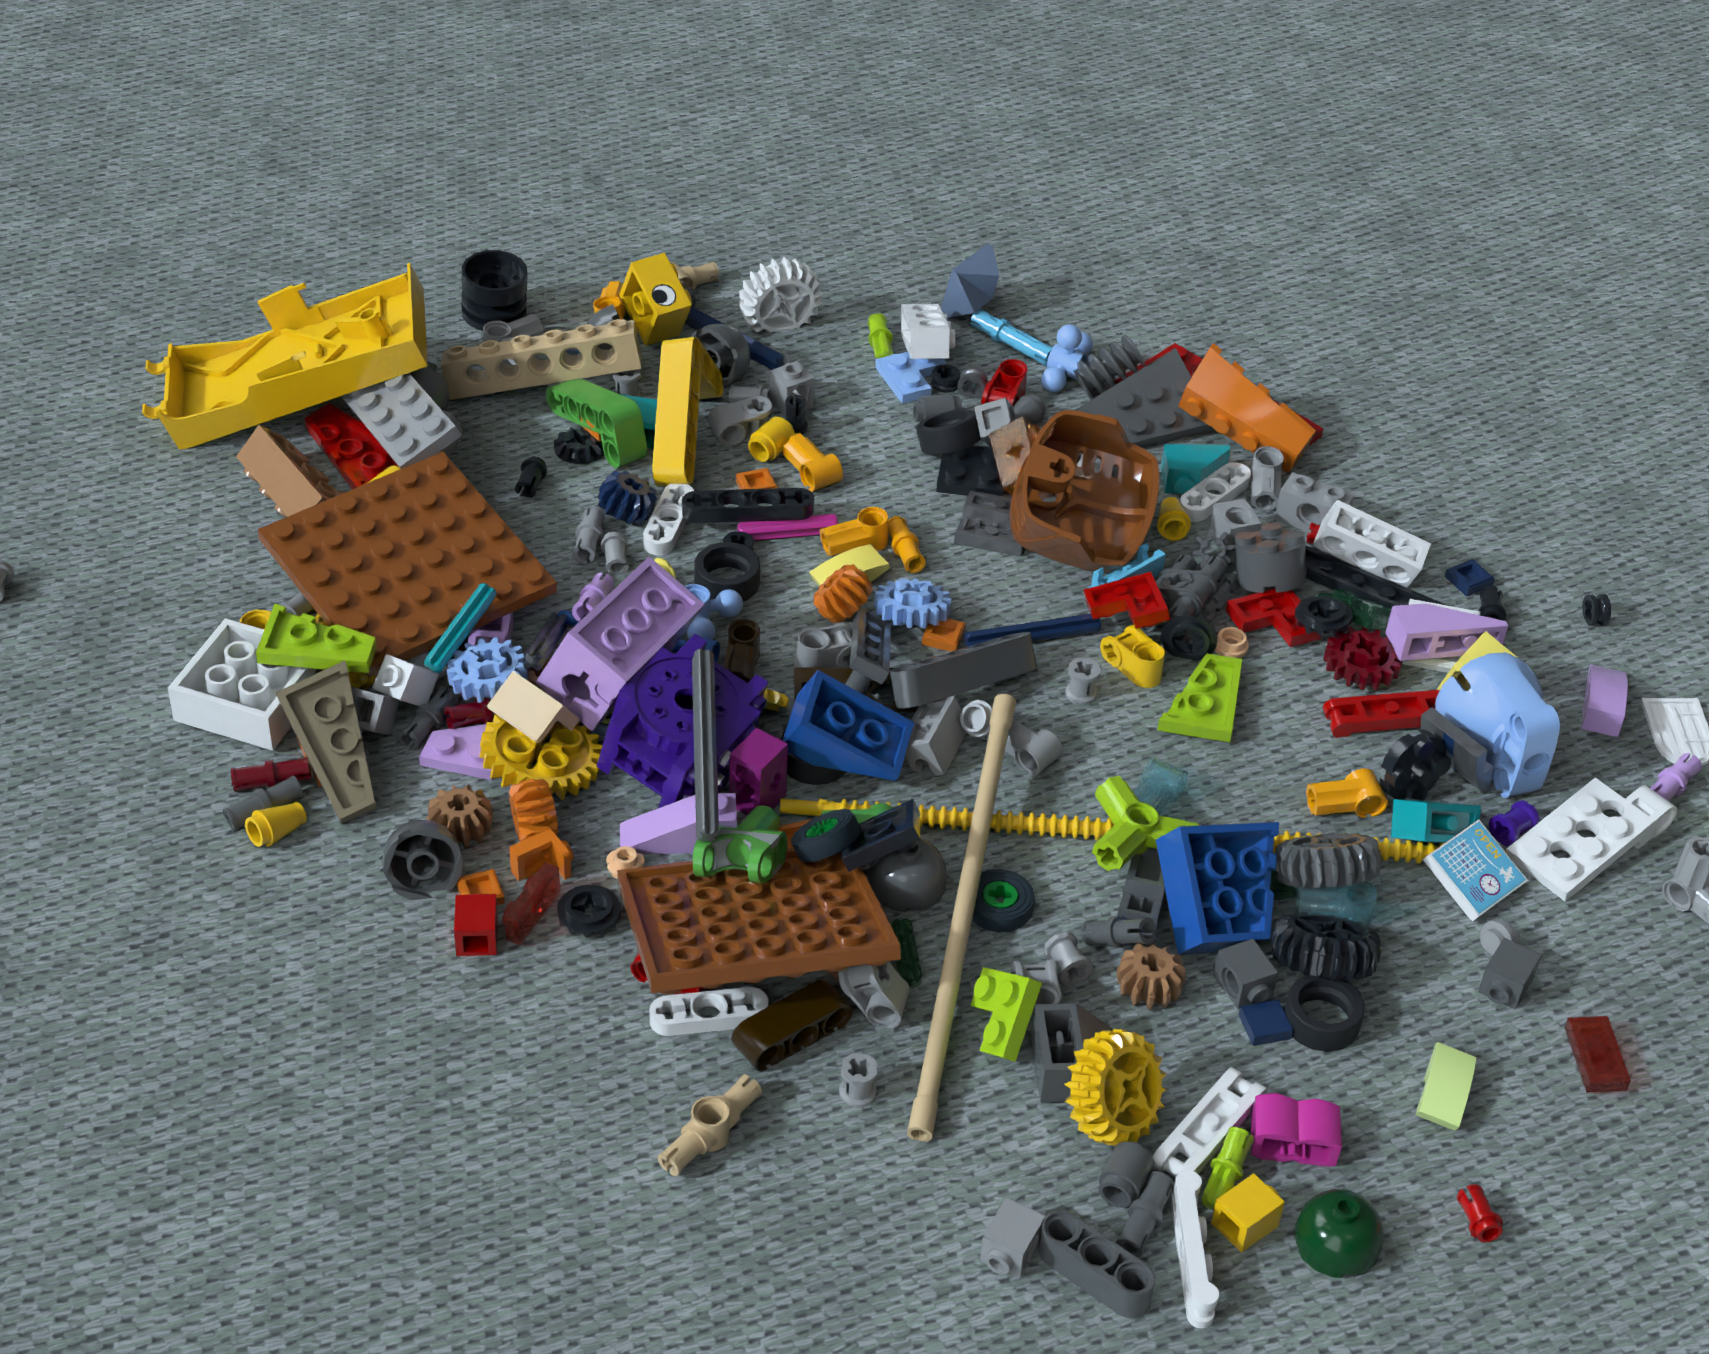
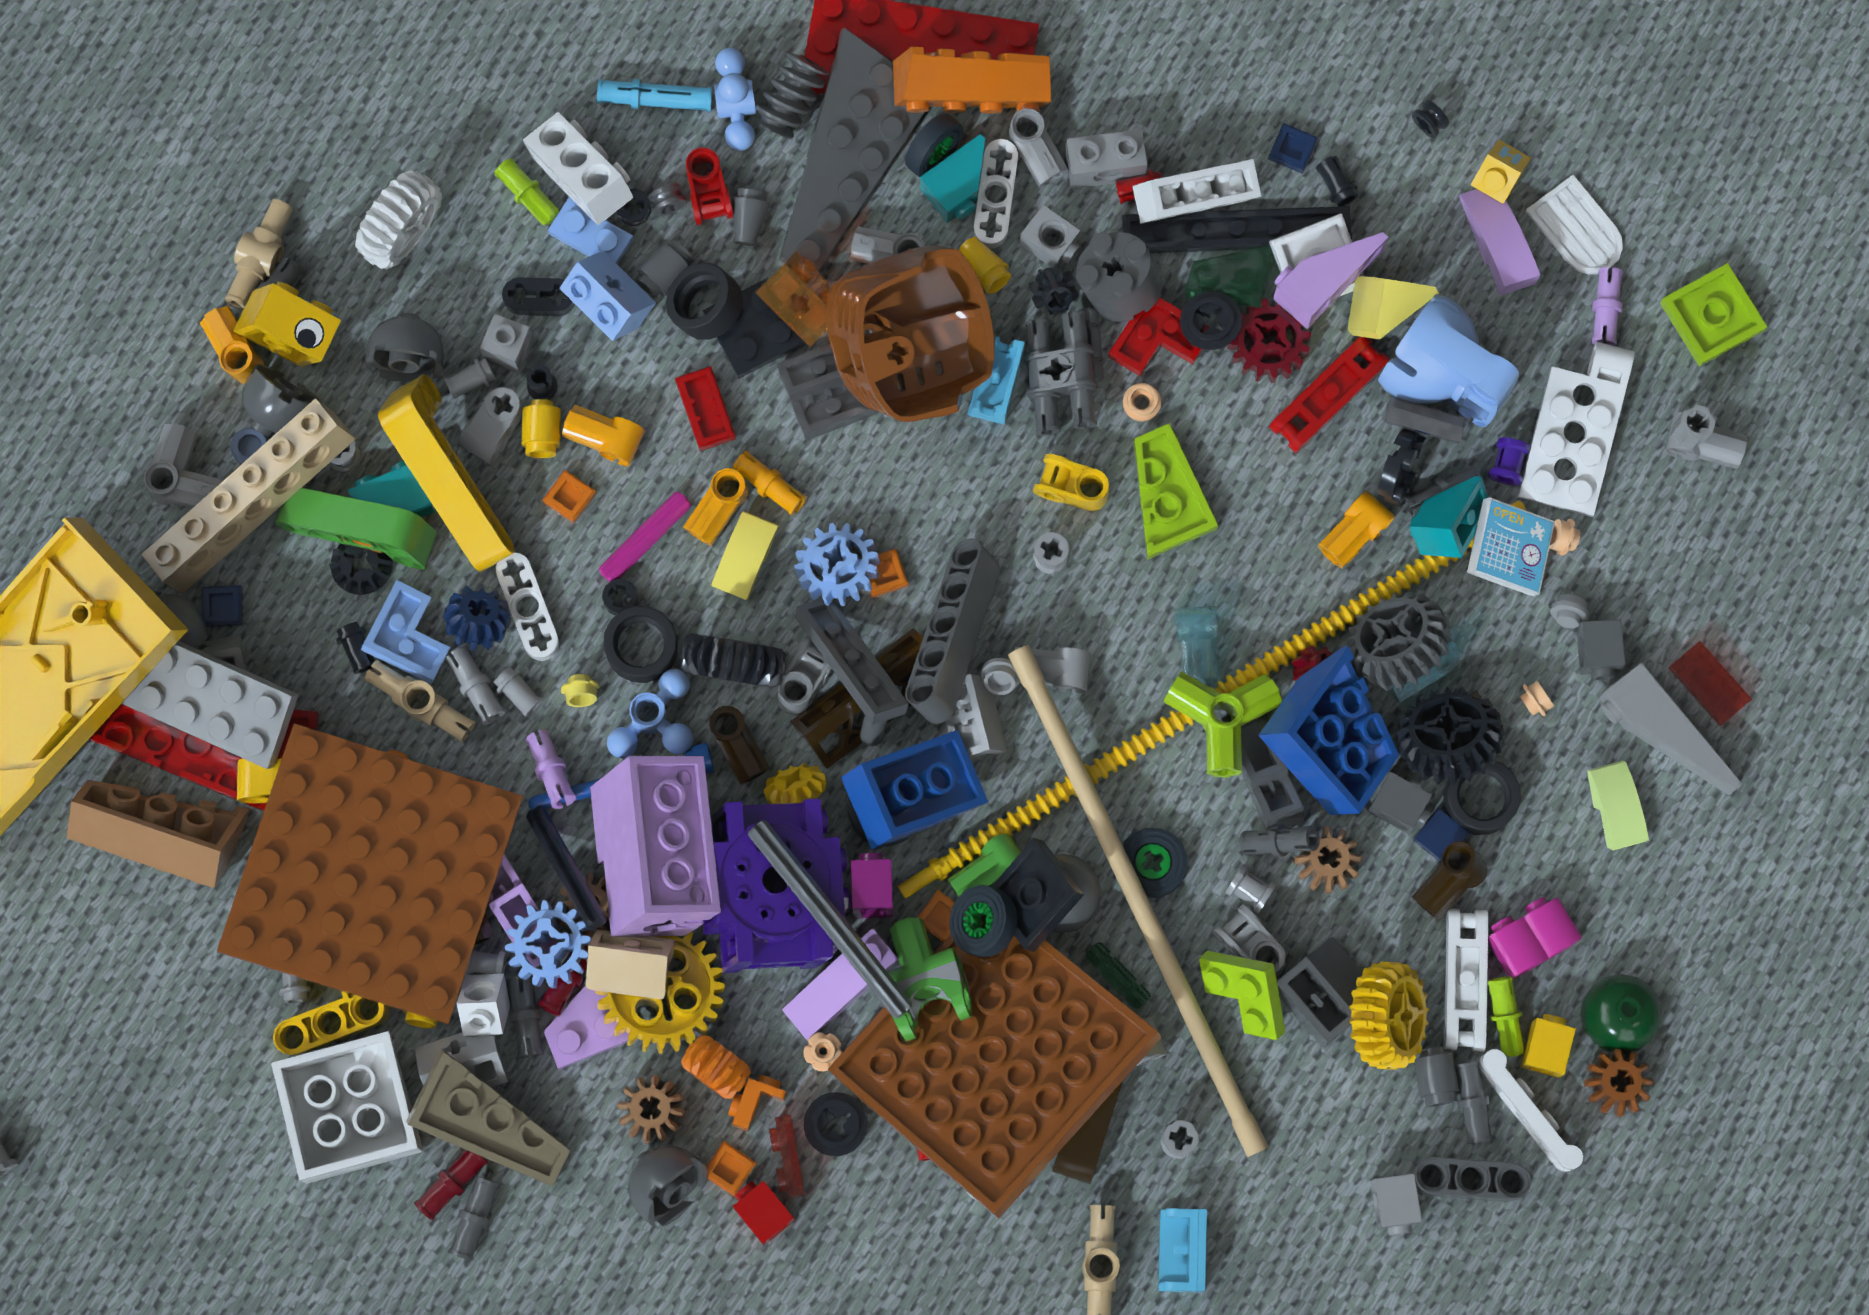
camera: 35 degrees left, 35 degrees up
(274, 823) = (504, 1232): yellow cone -> none
(307, 644) = (386, 1044): lime wing -> none
(460, 628) = (493, 922): teal axle -> none
(471, 416) = (222, 605): none -> dark blue tile
(493, 288) = (103, 398): black wheel -> none
(543, 520) = (405, 688): none -> tan pin
(566, 481) = (396, 639): none -> light blue plate
(709, 507) = (593, 542): black beam -> none
(759, 352) = (383, 297): dark blue axle -> none
(782, 594) = (733, 660): none -> black gear
(794, 1160) = (1182, 1250): none -> medium azure hinge
(838, 386) = (536, 306): none -> black beam
(842, 593) = (772, 605): orange gear -> none
(884, 397) = (607, 295): none -> light blue brick
(897, 487) = (705, 408): none -> red plate
(971, 283) = (576, 60): sand blue slope -> none
(993, 416) = (746, 262): light grey brick -> none
(1039, 630) = (961, 514): dark blue axle -> none
(1133, 594) = (1033, 421): red plate -> none
(1177, 642) = (1109, 431): black gear -> none
(1189, 421) = (933, 144): none -> black bush
(1261, 1044) = (1449, 882): none -> dark brown piece
(1297, 1278) = (1628, 1095): none -> dark orange gear
(1424, 979) = (1536, 699): none -> light nougat plate
(1483, 1221) = (1710, 916): red pin -> none
(1528, 892) = (1564, 536): none -> light nougat plate
(1528, 1050) = (1653, 716): none -> light grey slope
(1634, 655) = (1500, 171): none -> yellow brick

